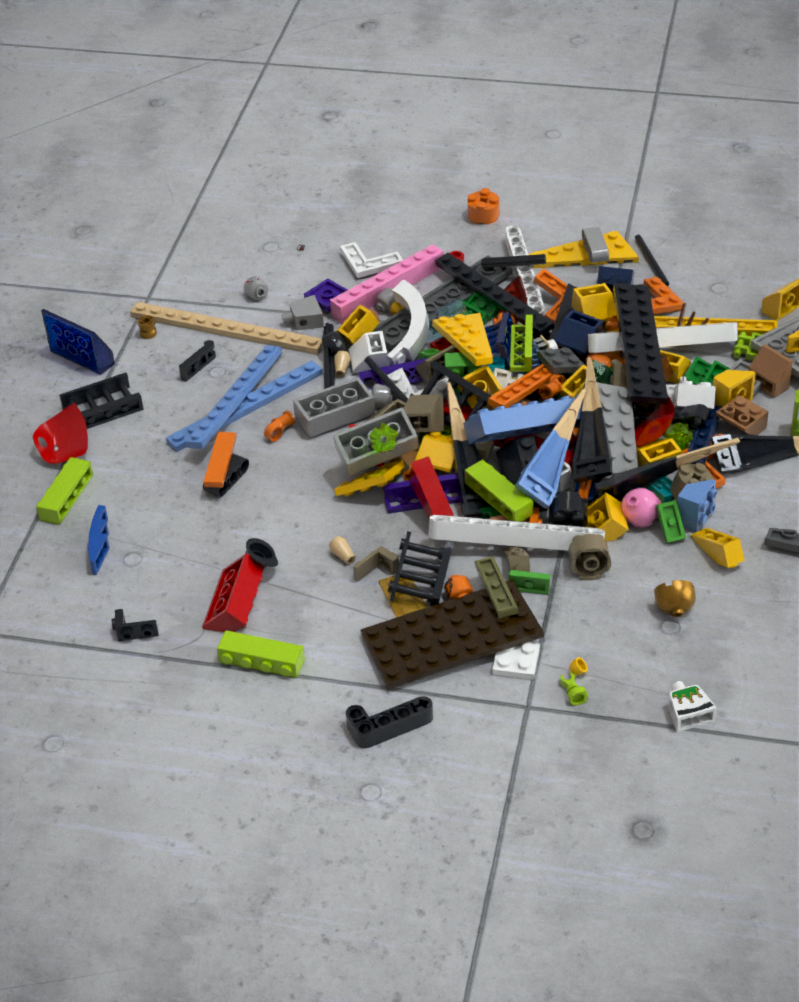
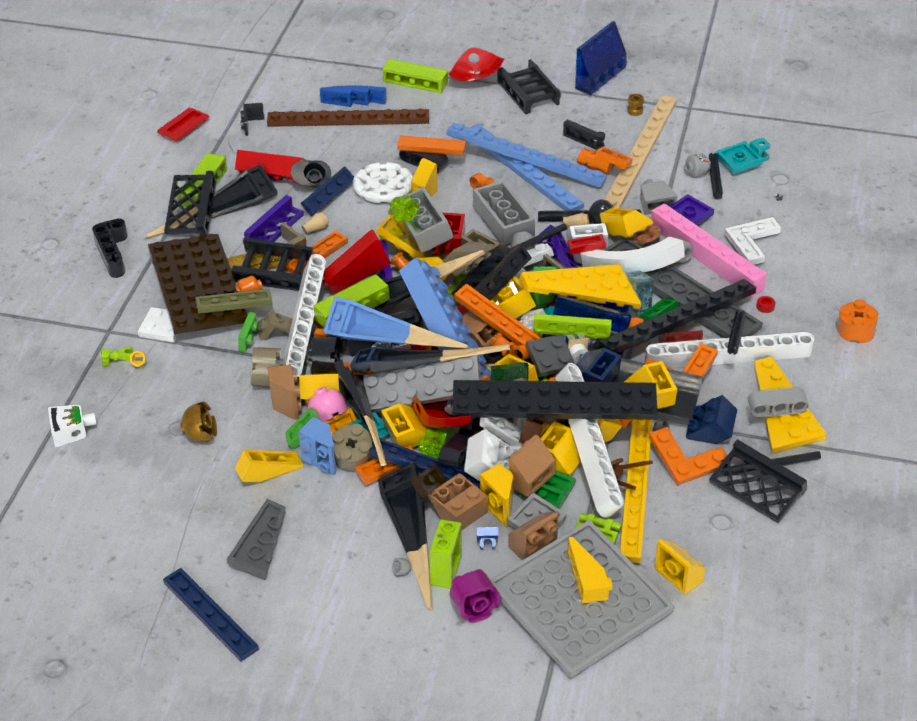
camera: 90 degrees right, 0 degrees up
(133, 693) = (183, 124): none -> red piece
(136, 547) = (354, 117): none -> reddish brown plate
(237, 256) = (748, 155): none -> teal plate
(248, 343) = (603, 159): none -> orange plate
(267, 517) = (383, 182): none -> white plate
(273, 280) = (715, 176): none -> black axle
(279, 464) = (425, 176): none -> yellow slope
(288, 613) = (242, 192): none -> black plate
(291, 547) = (327, 191): none -> dark blue plate
(318, 636) = (204, 208): none -> black fence
(343, 586) = (274, 216): none -> dark purple fence
(374, 539) = (324, 248): none -> orange tile
(396, 344) = (586, 244): none -> red tile
(625, 536) = (283, 390): none -> medium nougat slope
(670, 254) = (771, 470): none -> black fence
(701, 368) = (531, 466): none -> medium nougat slope
(725, 428) = (428, 480): none -> dark brown plate
(772, 403) = (487, 533): none -> tile

